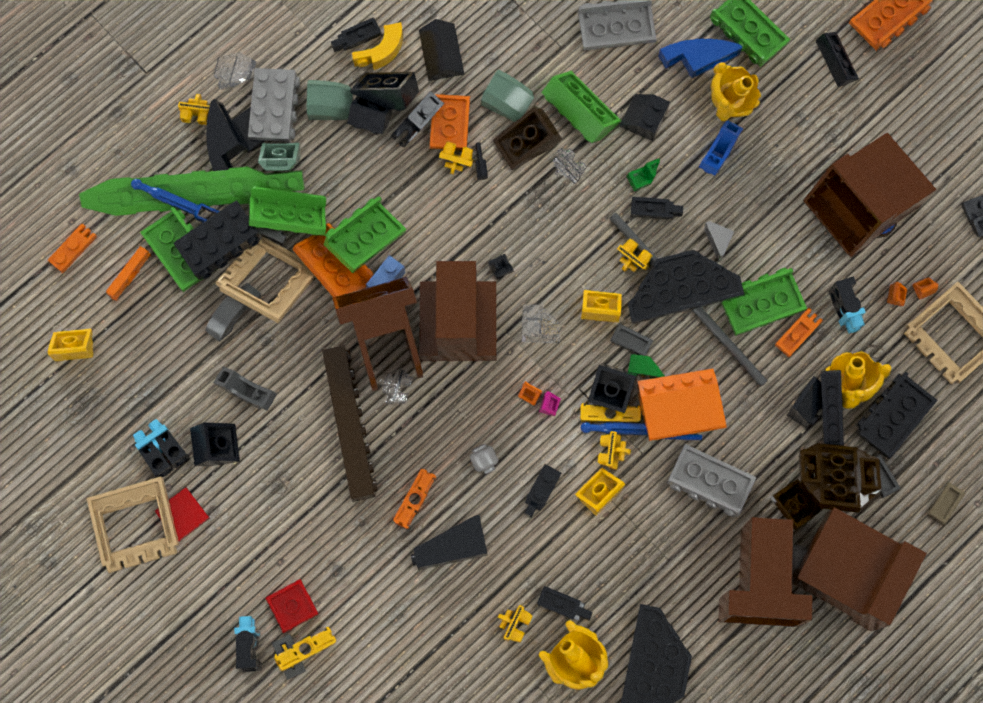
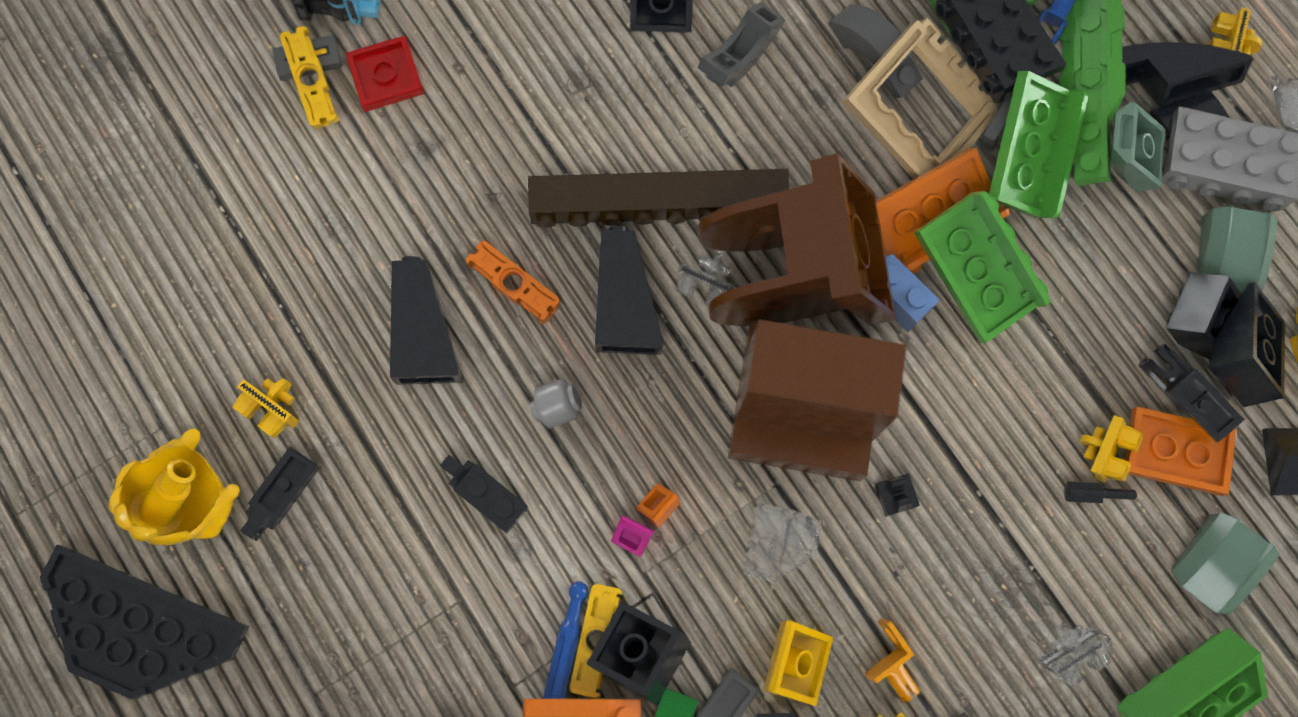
camera: 95 degrees right, 0 degrees up
(414, 432) = (624, 302): none -> black slope
(527, 138) = (1138, 587): dark brown slope -> none
(593, 257) = (892, 665): none -> light orange bracket
(600, 491) = (458, 593): yellow slope -> none
(616, 450) = (523, 635): yellow hips -> none

